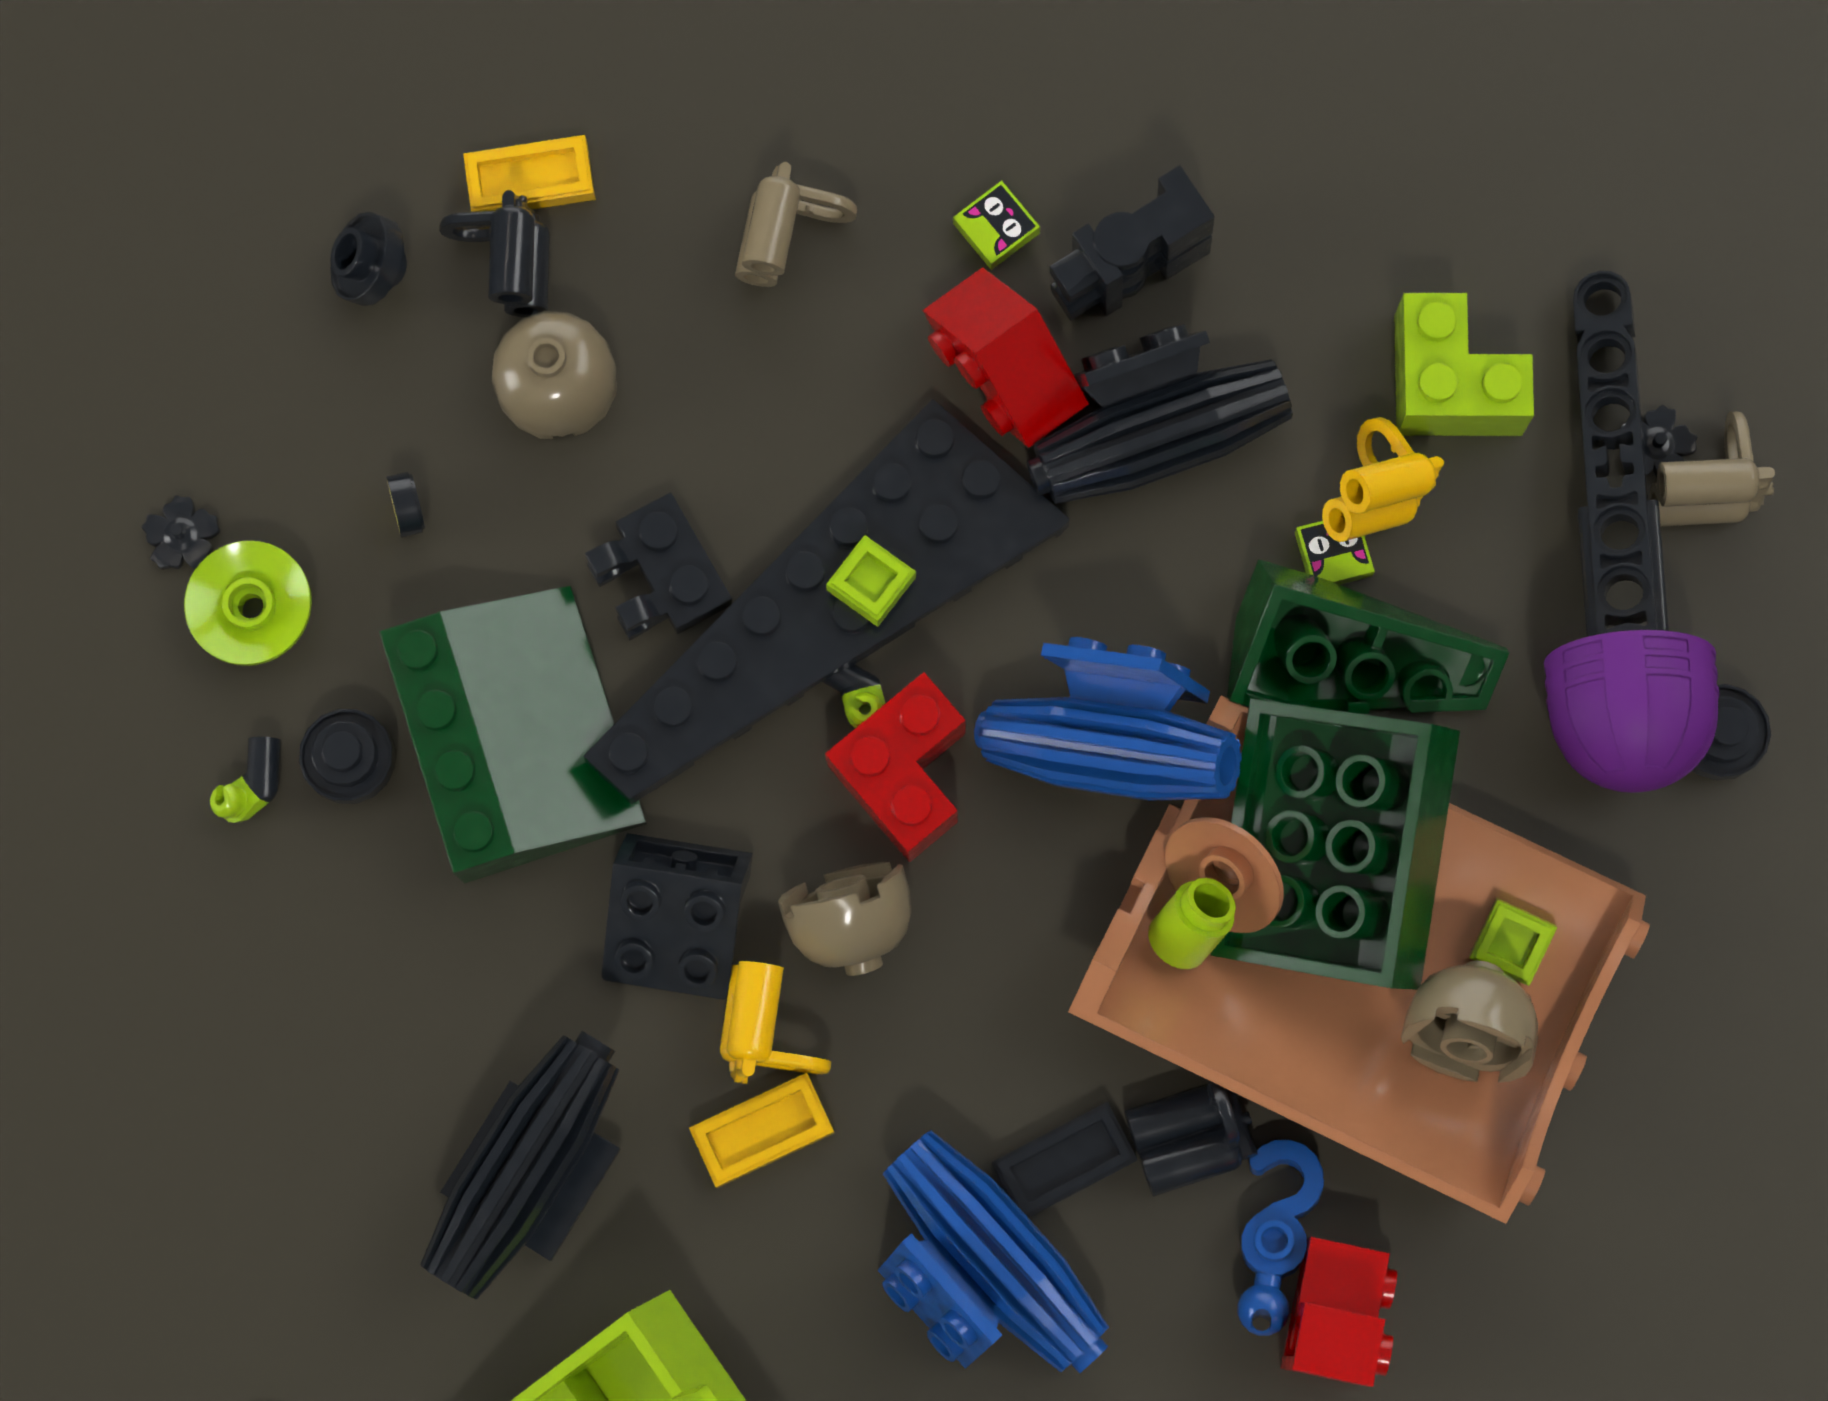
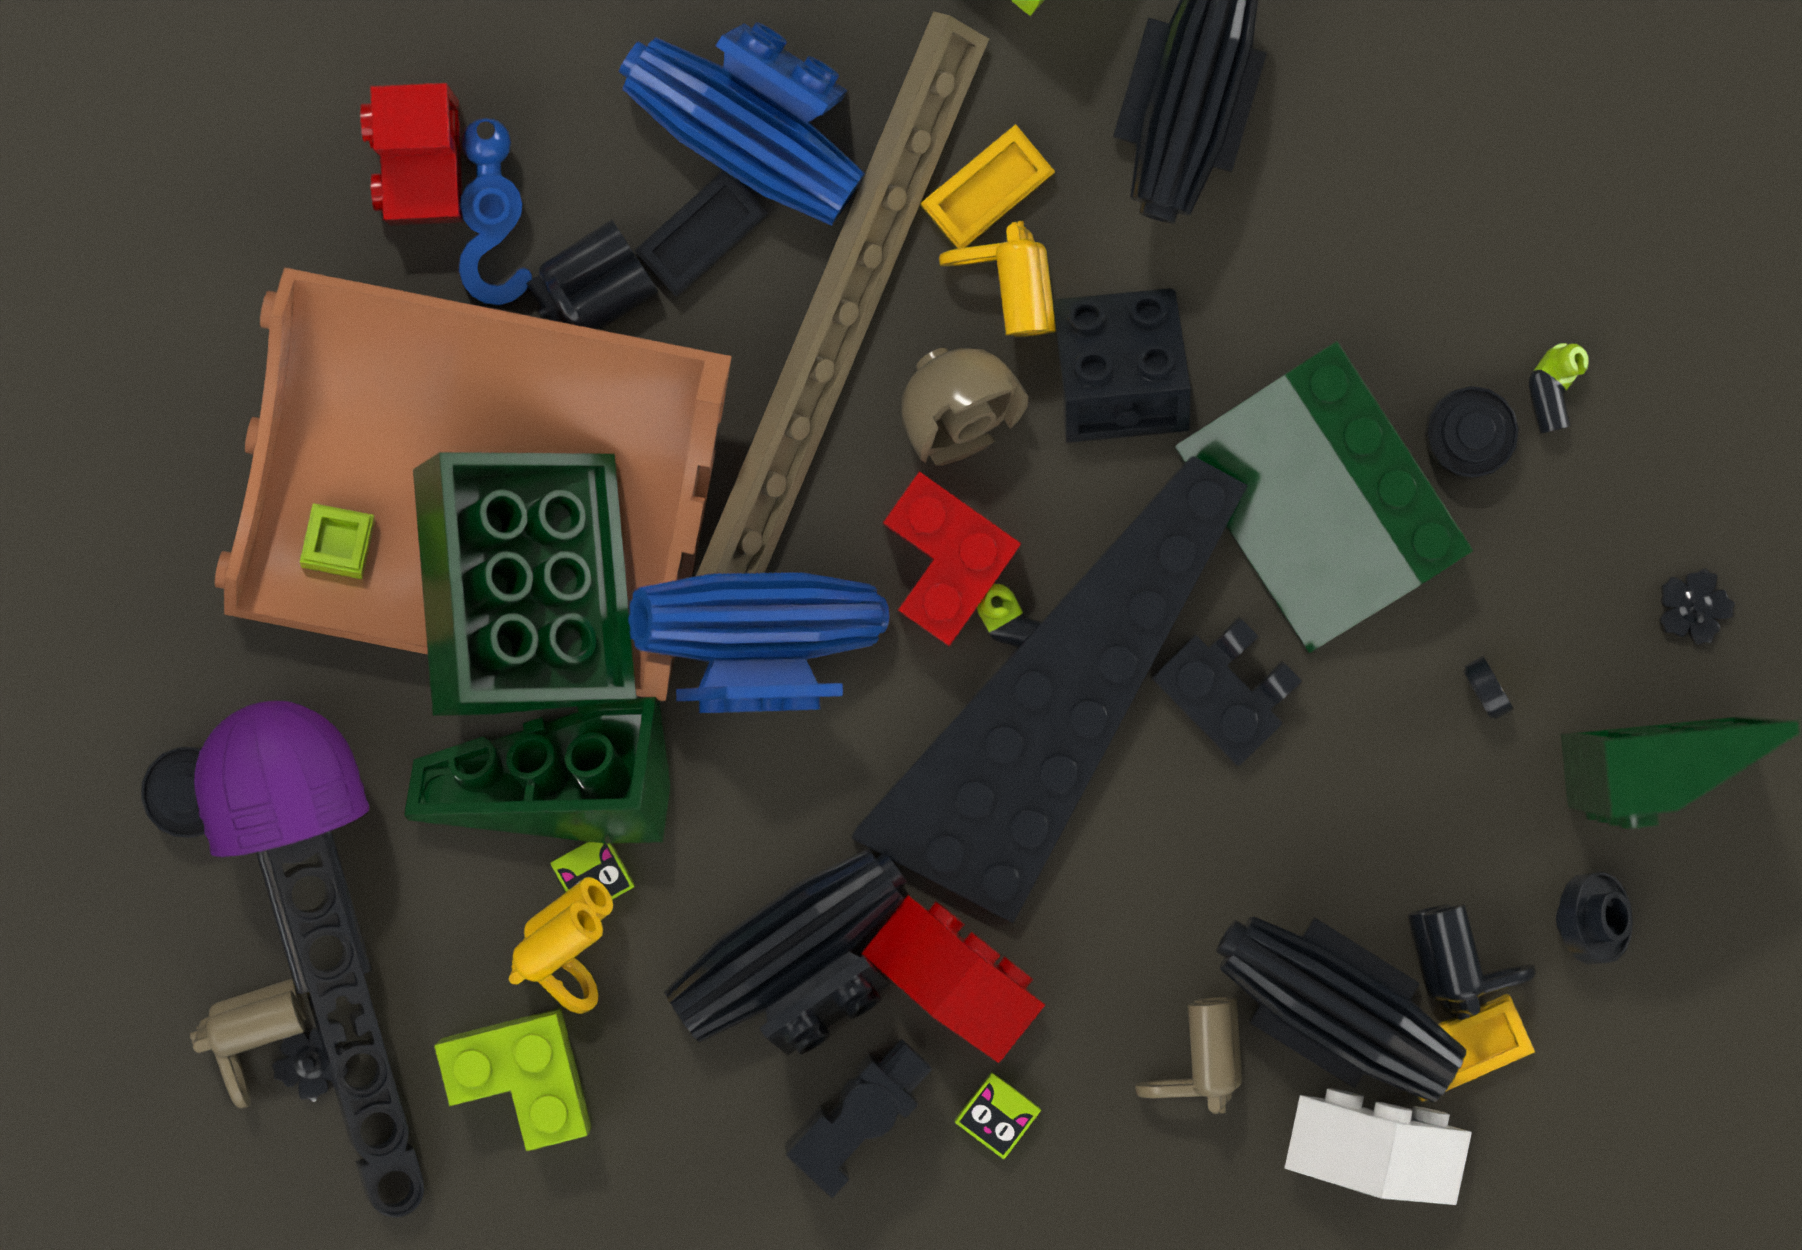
camera: 160 degrees right, 10 degrees up
(227, 582) = (1640, 548): lime dish -> none
(247, 368) = (1661, 768): none -> dark green slope
(554, 375) = (1382, 853): dark tan cylinder -> none
(634, 233) = (1339, 1006): none -> black plate
(640, 90) = (1379, 1150): none -> white brick
(871, 580) = (1022, 722): lime tile -> none
(936, 1051) = (846, 298): none -> dark tan plate
(1192, 923) = (638, 472): lime brick -> none
(1232, 857) = (619, 522): nougat dish -> none
(1472, 1022) = (358, 451): dark tan cylinder -> none

